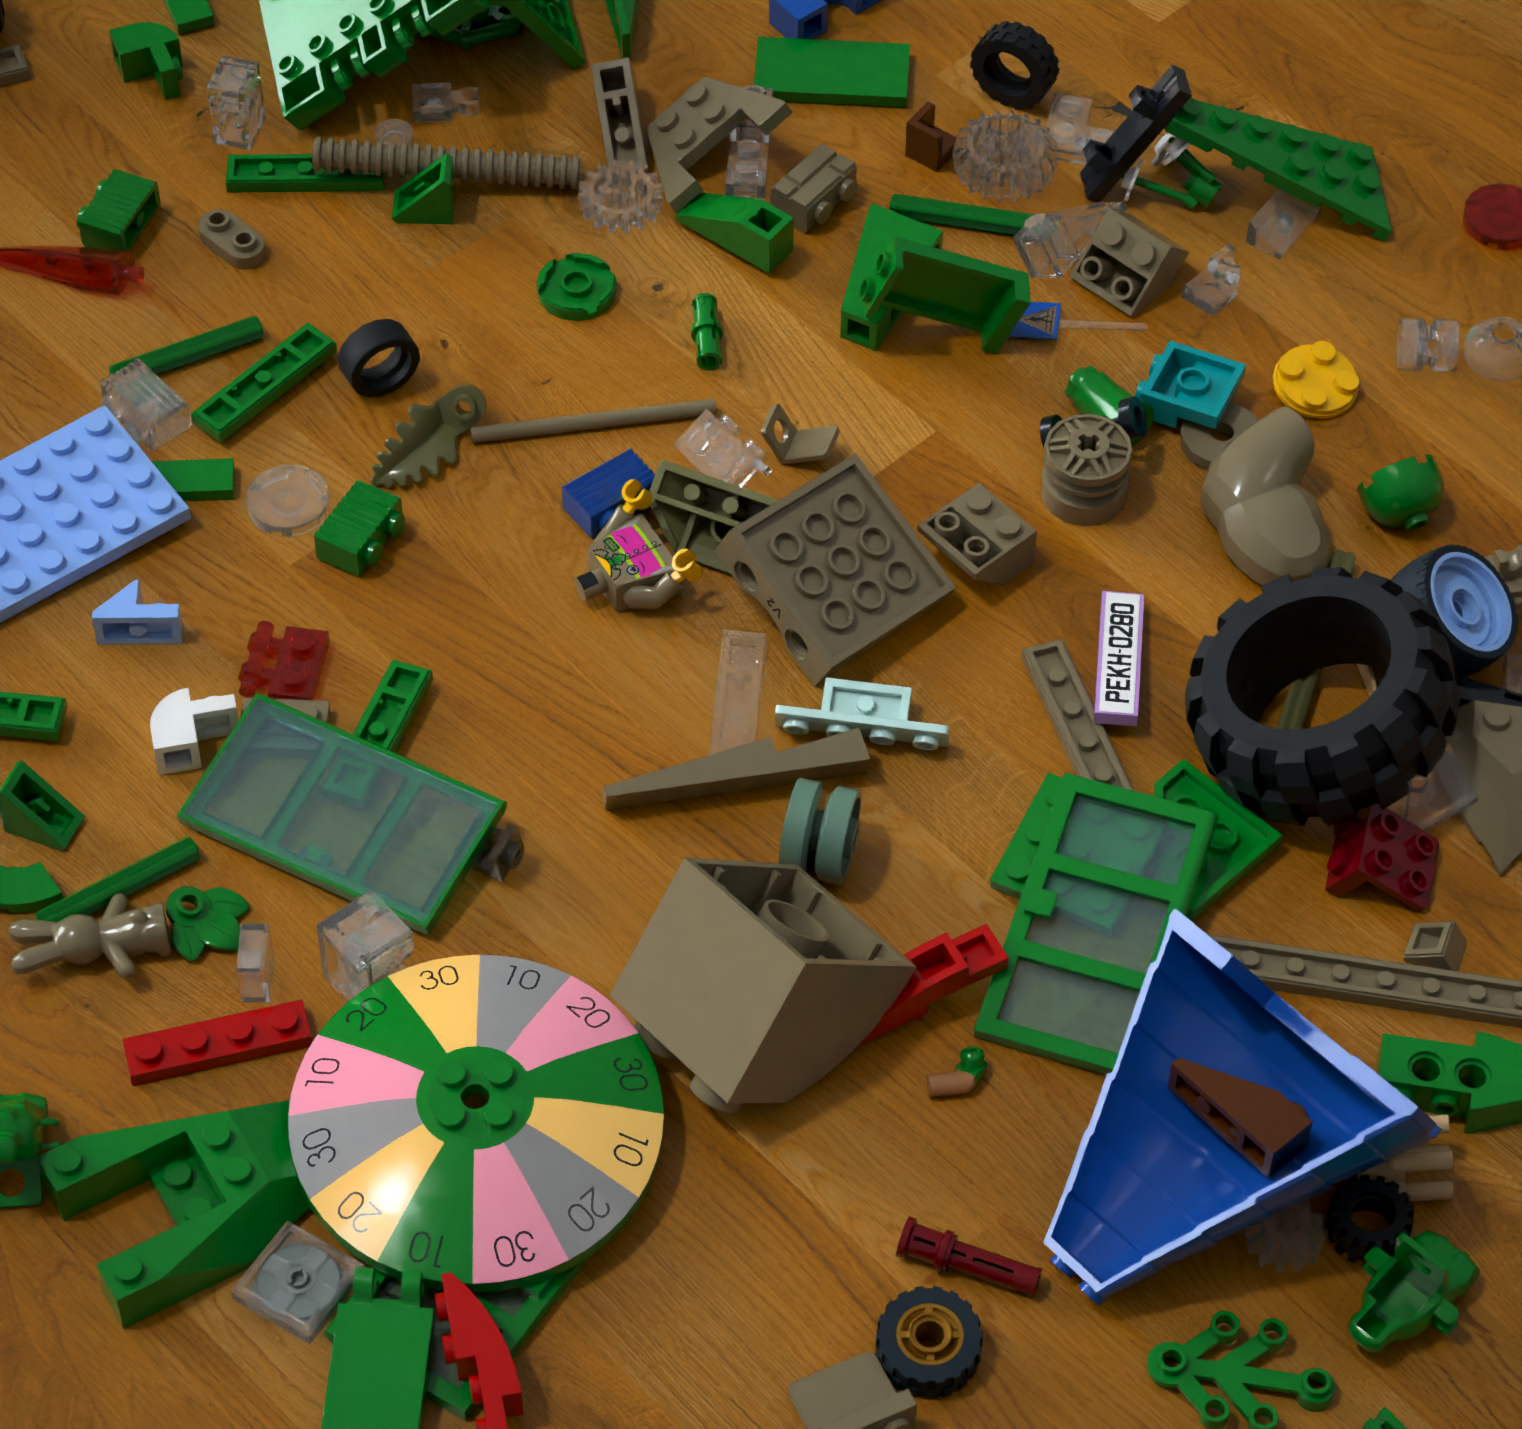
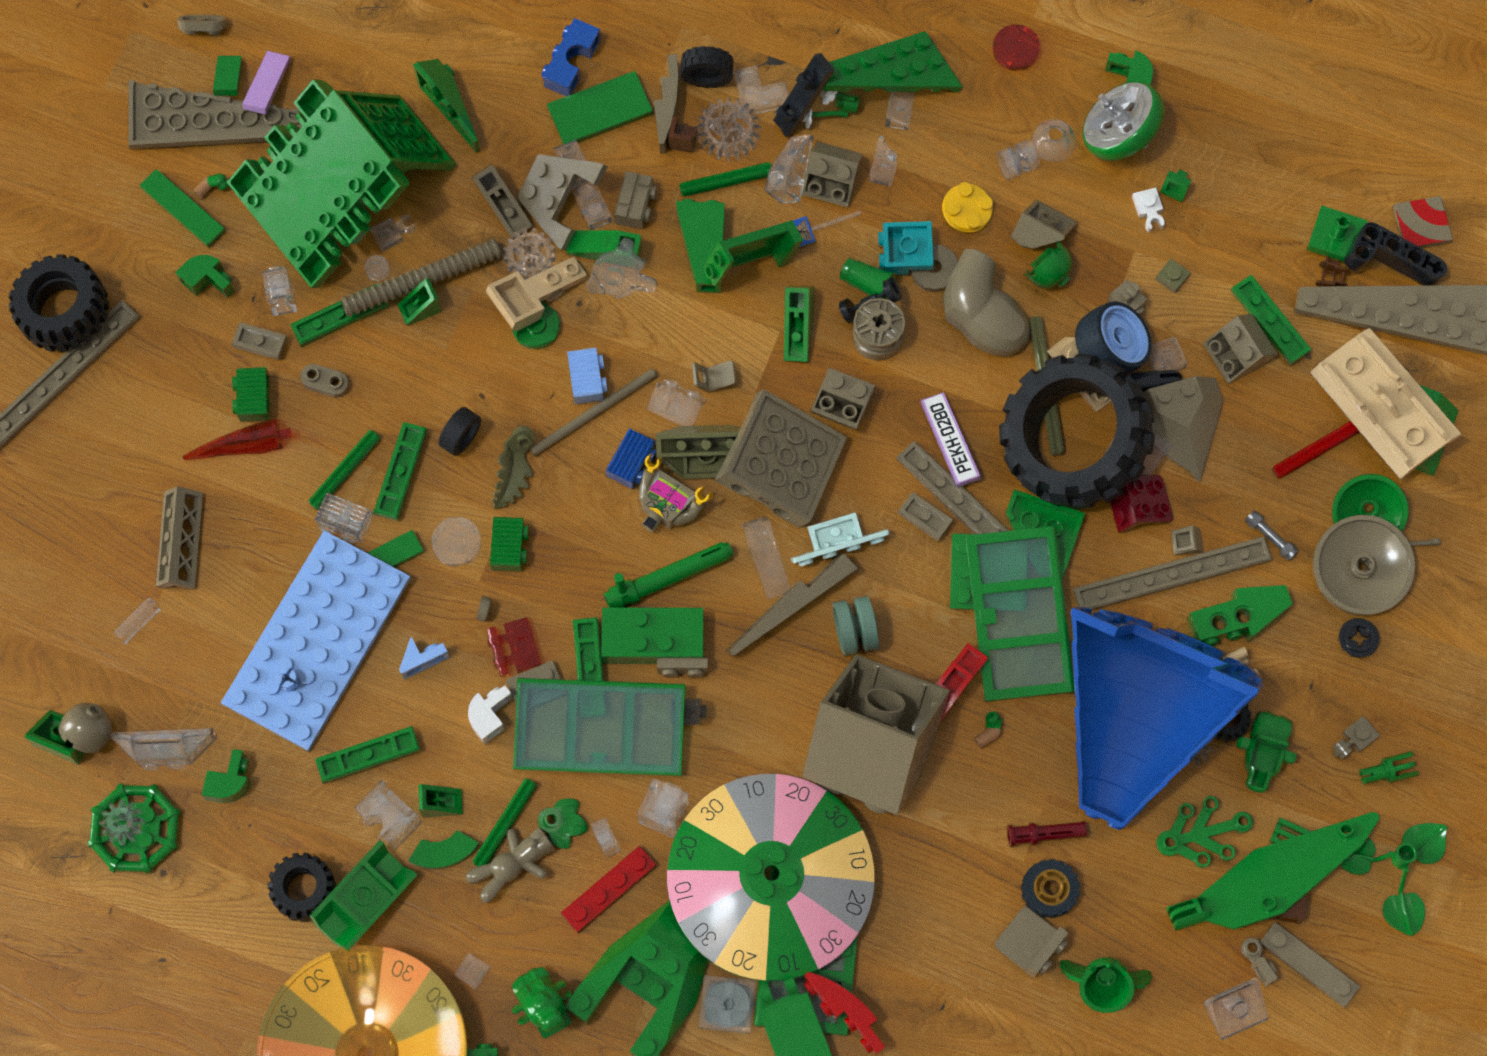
camera: 25 degrees left, 20 degrees up
(172, 157) = (259, 341): none -> dark tan plate
(270, 594) = (484, 609): none -> dark tan tile
(500, 727) = (650, 634): none -> green brick
(507, 660) = (633, 590): none -> green cylinder
(521, 786) = (673, 666): none -> dark tan plate
(569, 237) = (521, 299): none -> tan plate
(609, 368) = (585, 375): none -> light blue brick
(706, 331) = (624, 324): green pin -> none
(734, 257) = (620, 273): none -> clear tile
(941, 89) = (667, 107): none -> dark tan slope
(970, 417) = (798, 322): none -> green slope
(1021, 743) = (925, 516): none -> dark tan plate
(1246, 1114) = (1153, 698): reddish brown slope -> none
(1410, 431) = (1042, 226): none -> dark tan slope

